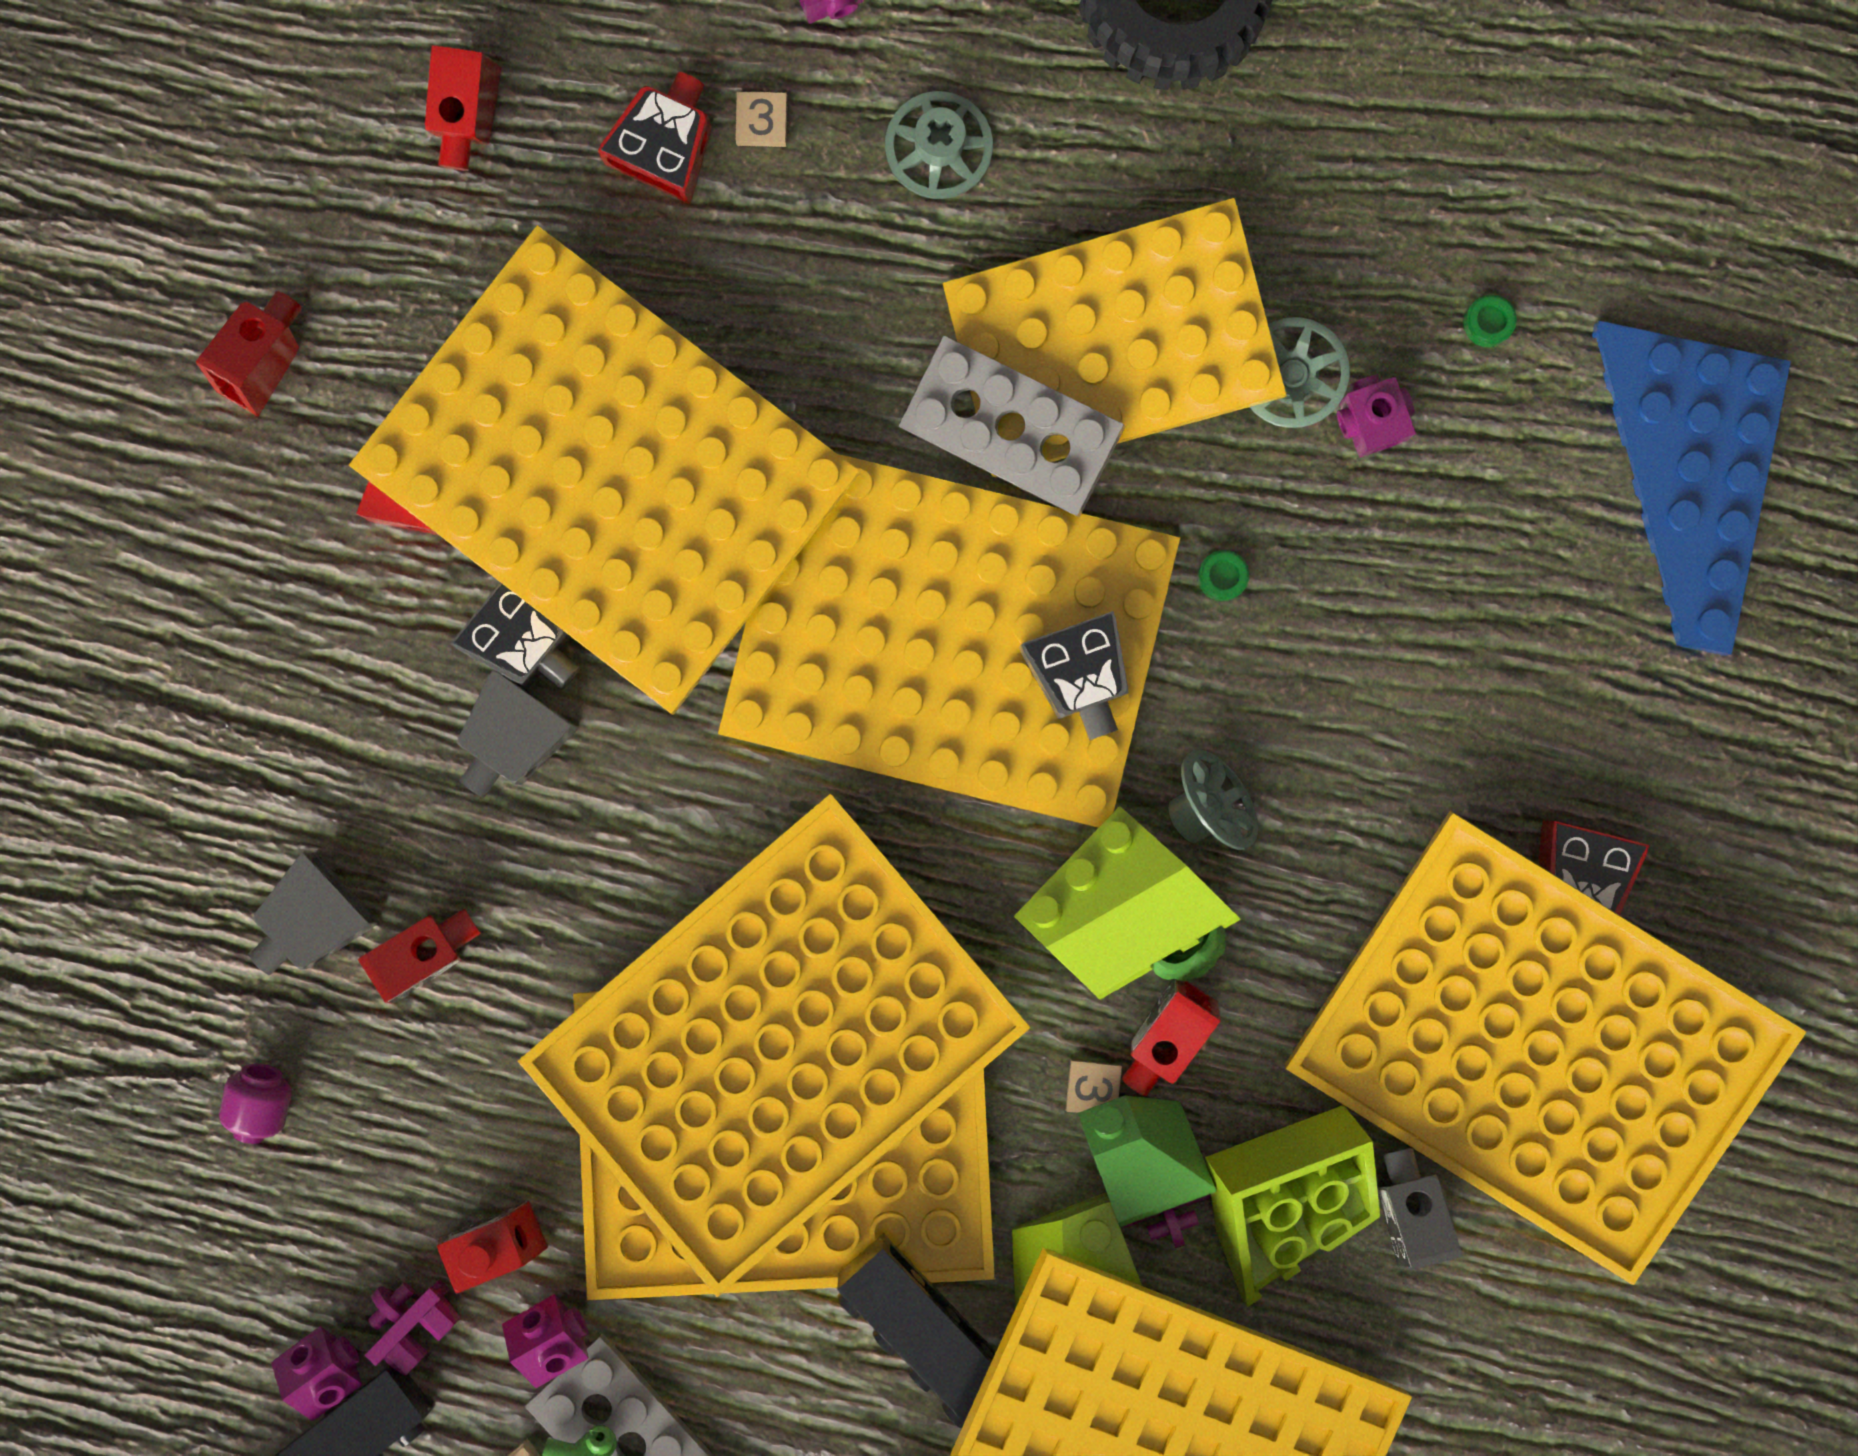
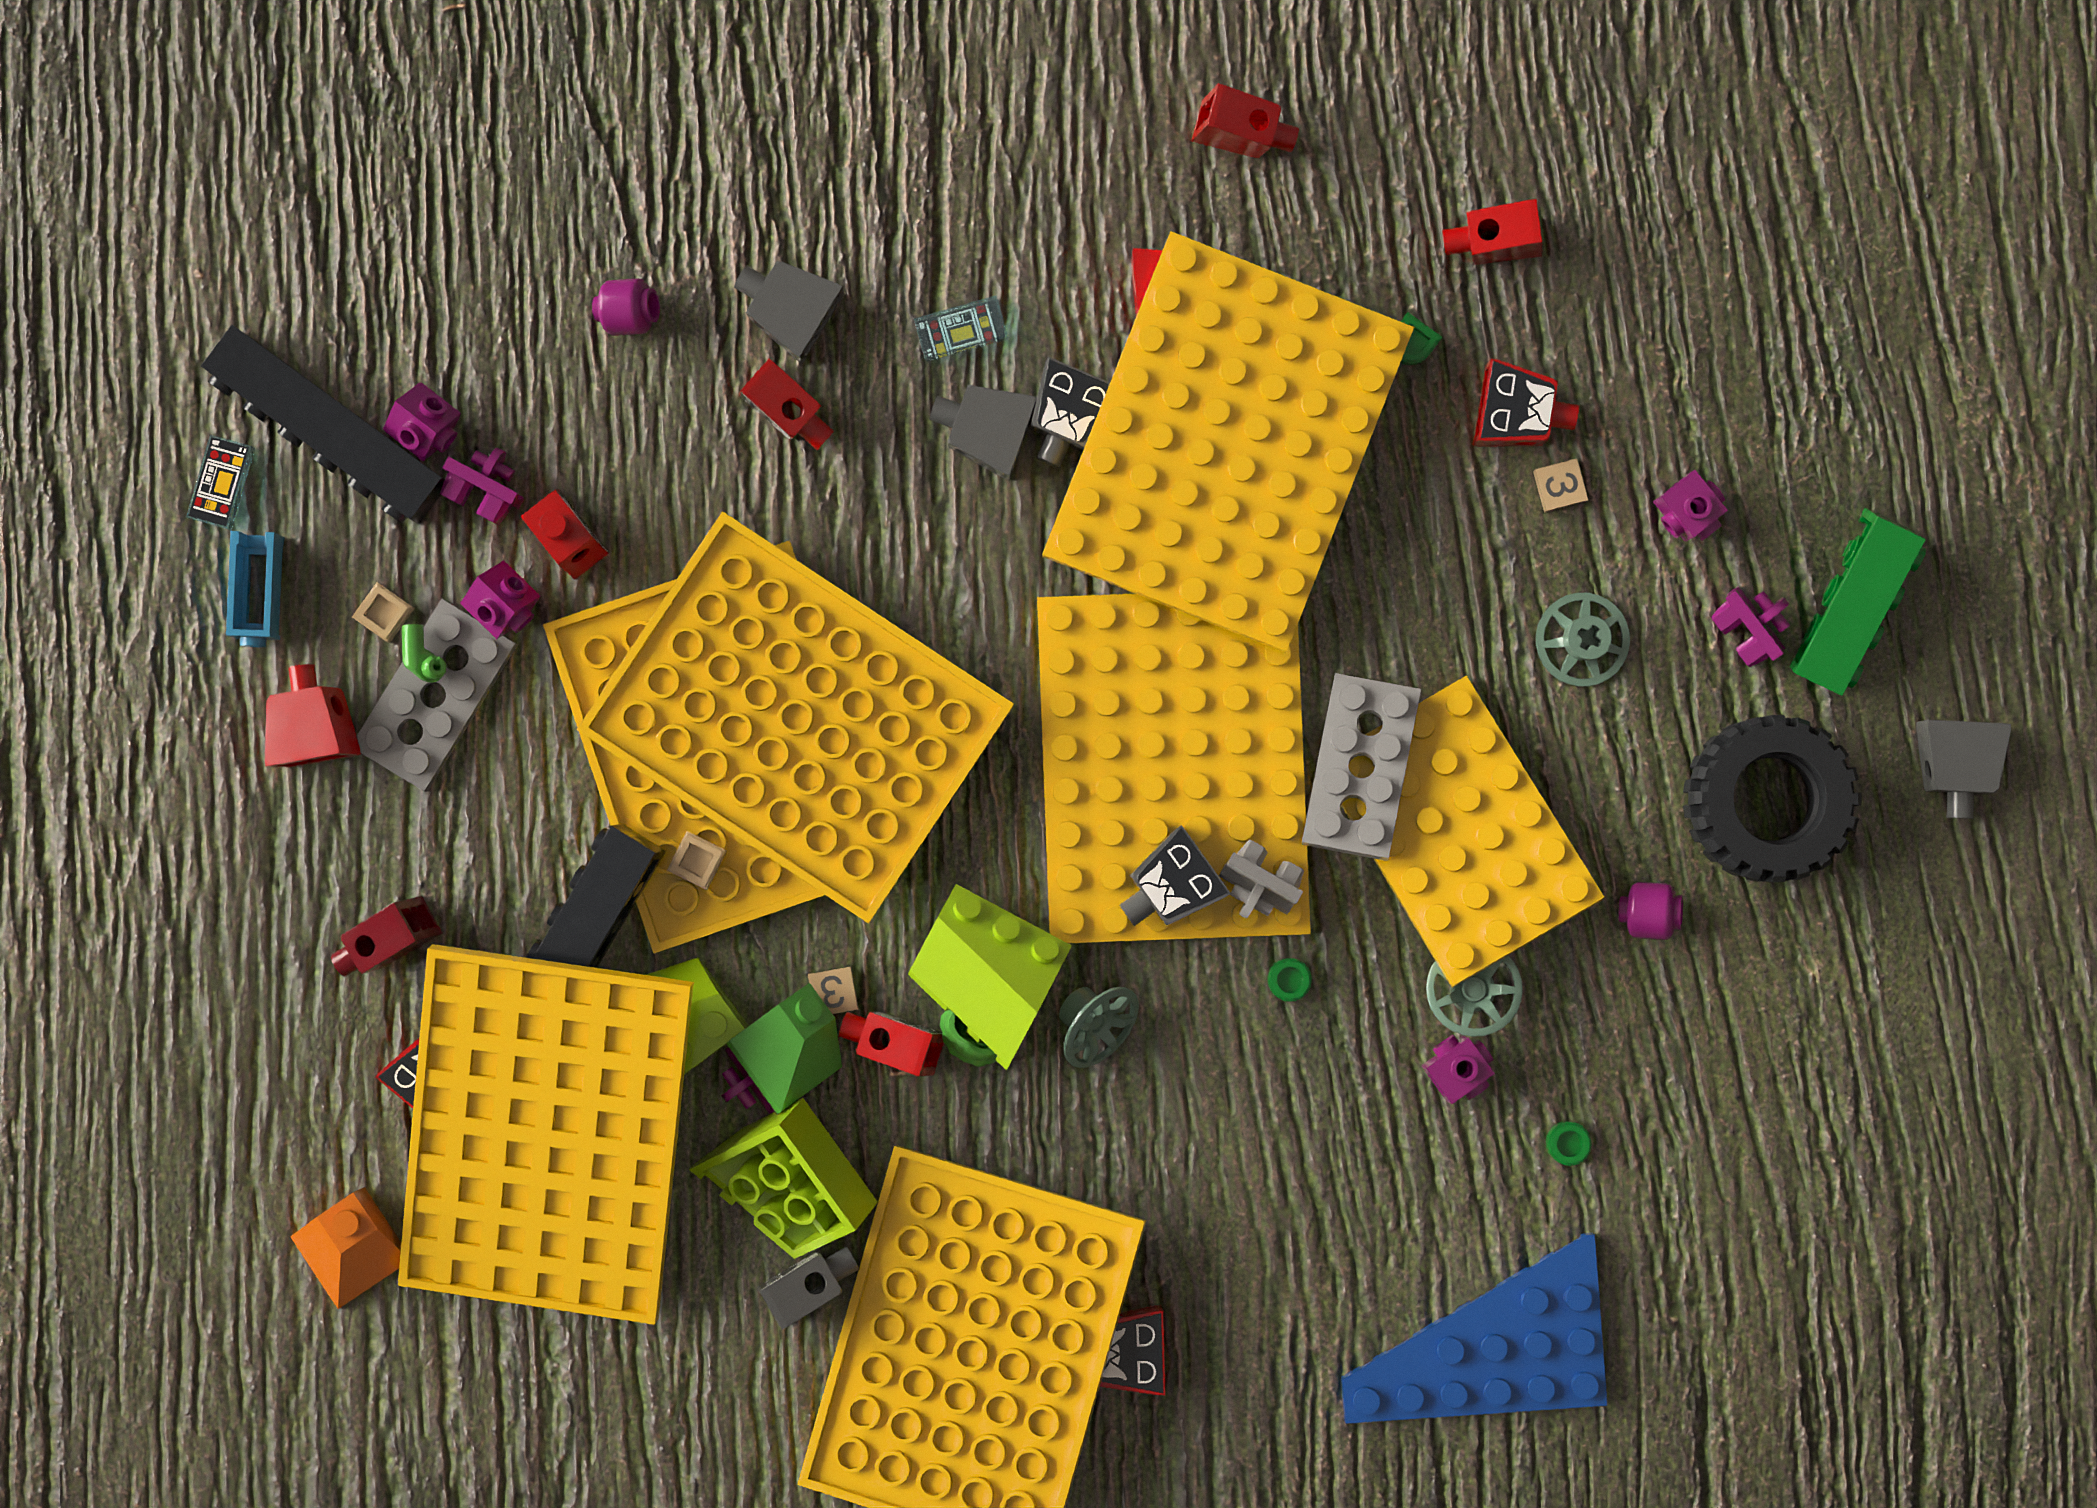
camera: 70 degrees right, 0 degrees up
(392, 733) = (960, 328): none -> clear light blue tile
(559, 225) = (1421, 342): none -> green tile
(904, 1200) = (696, 860): none -> tan tile
(1114, 578) = (1259, 887): none -> light grey hips
(1261, 154) = (1651, 911): none -> magenta head

